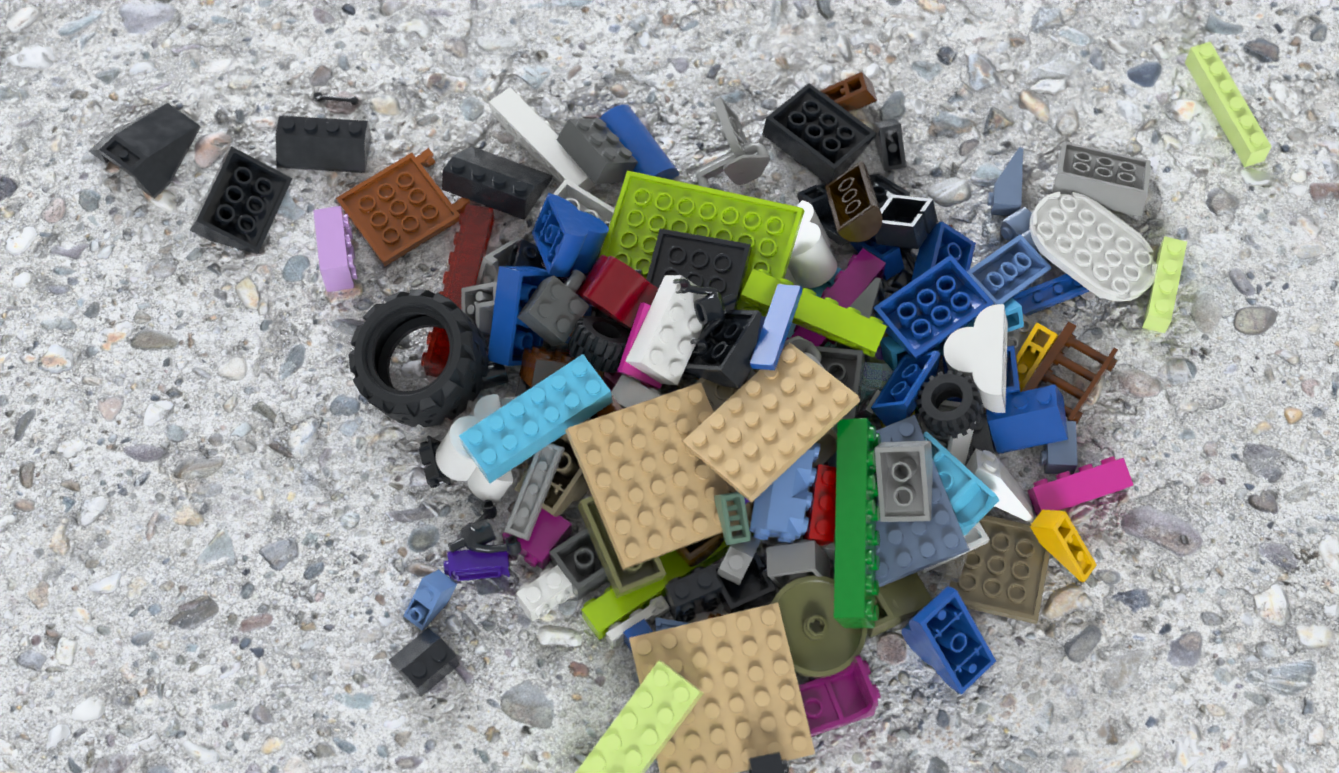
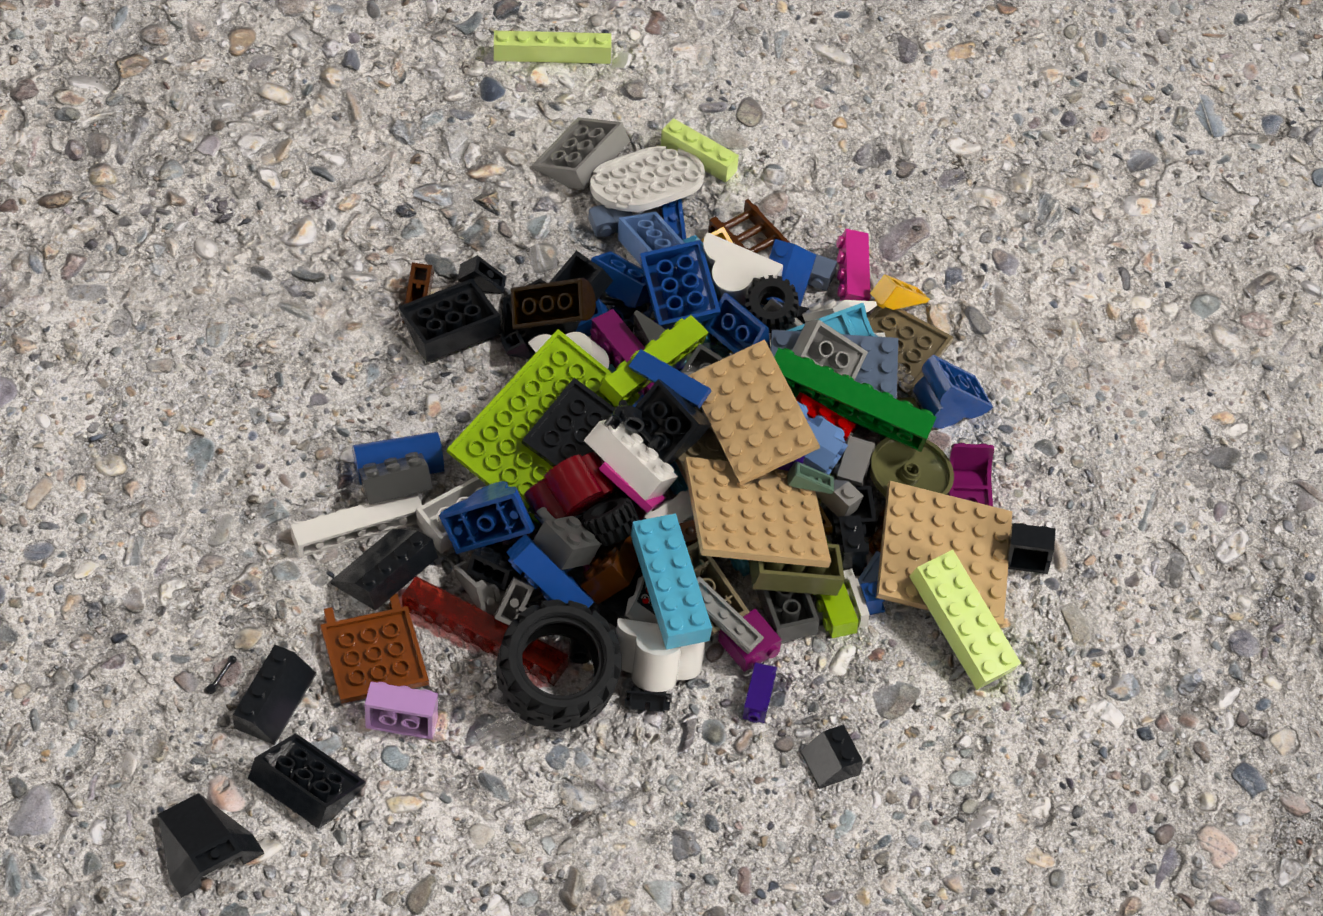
camera: 75 degrees left, 10 degrees down
(430, 598) = (778, 737): medium blue slope -> none
(478, 534) = (738, 675): black piece -> none
(544, 593) = (805, 652): white brick -> none
(739, 163) = (446, 378): light grey plate -> none
(1008, 188) = (564, 215): sand blue slope -> none

